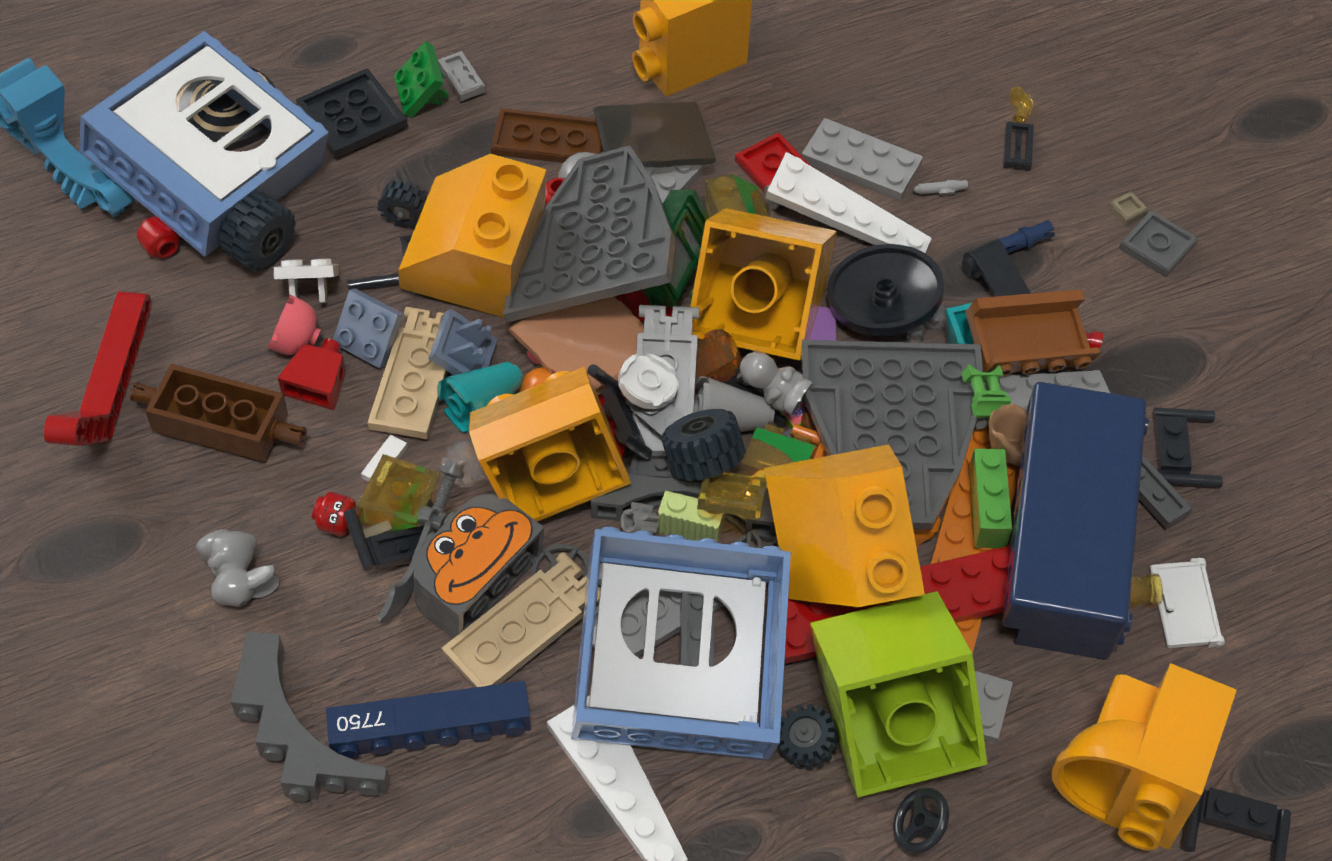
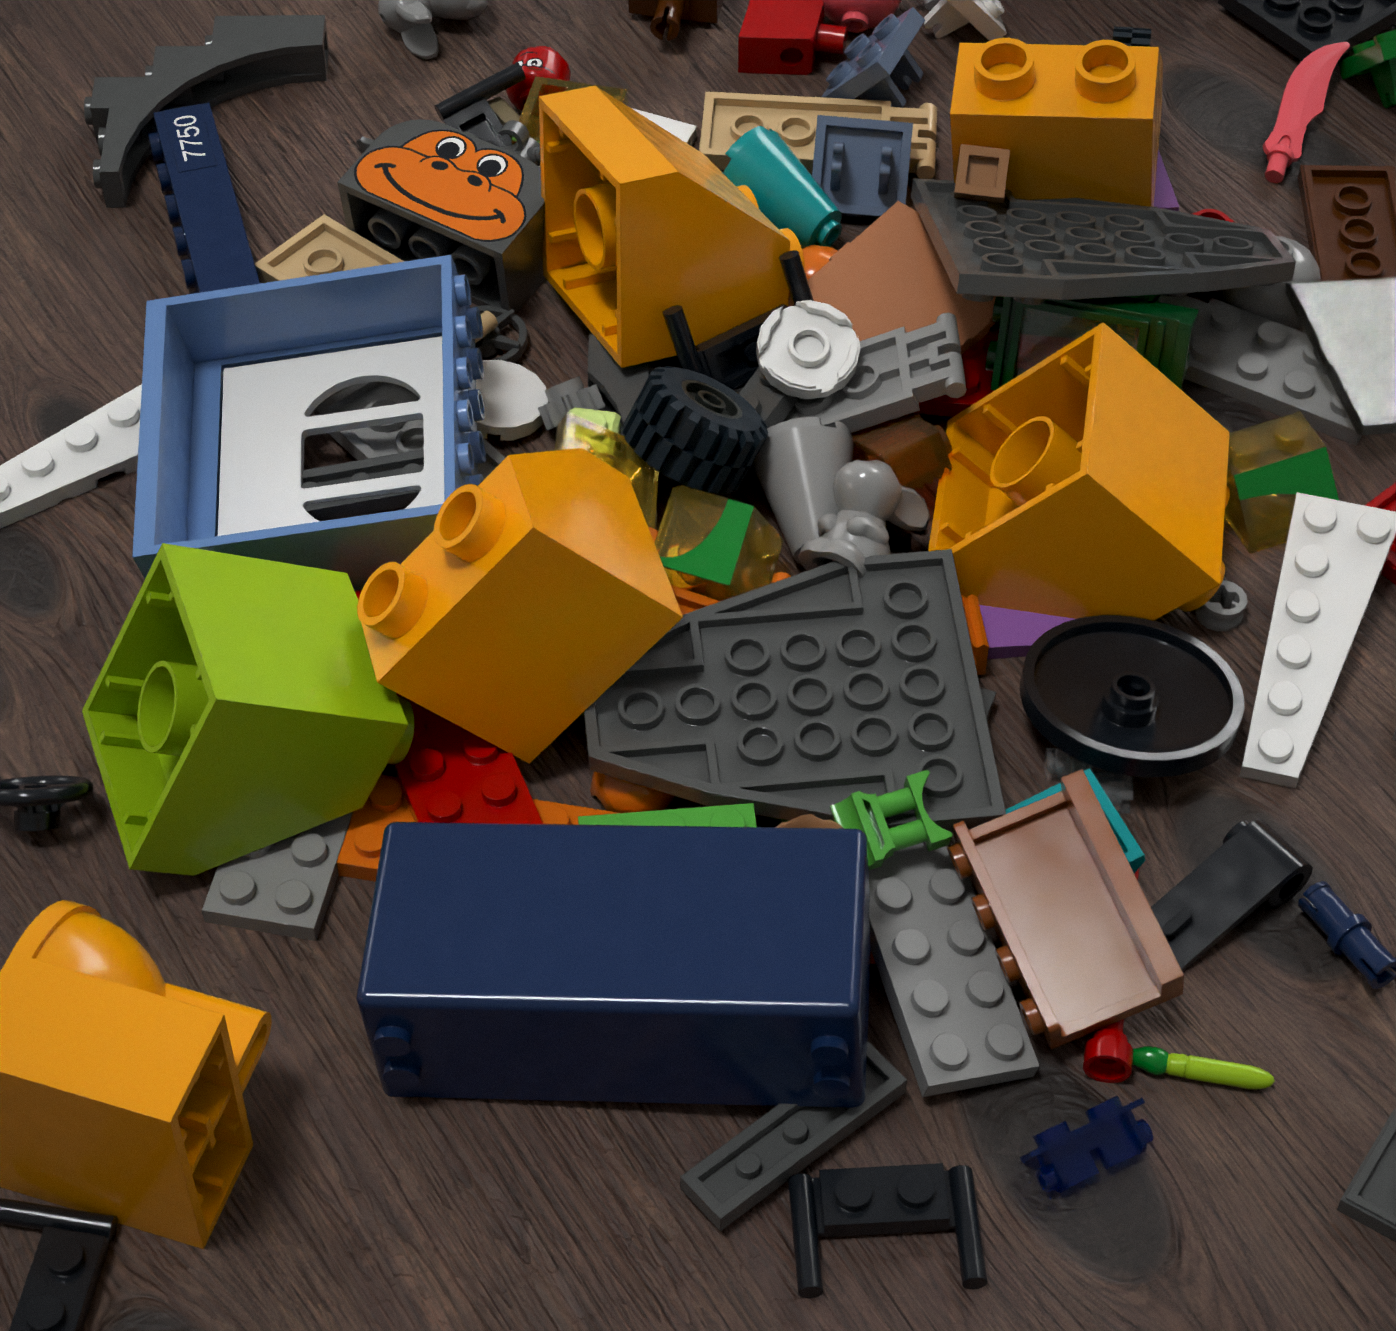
camera: 85 degrees right, 5 degrees down
(440, 134) = (1300, 104): none -> coral sword
(530, 272) = (982, 173): none -> medium nougat tile
(1096, 309) = (1158, 1062): none -> lime piece
(1139, 360) = (1066, 1153): none -> clear blue hinge
(1146, 590) = (523, 1138): clear yellow wheel -> none
(1192, 605) = (482, 1233): white door -> none

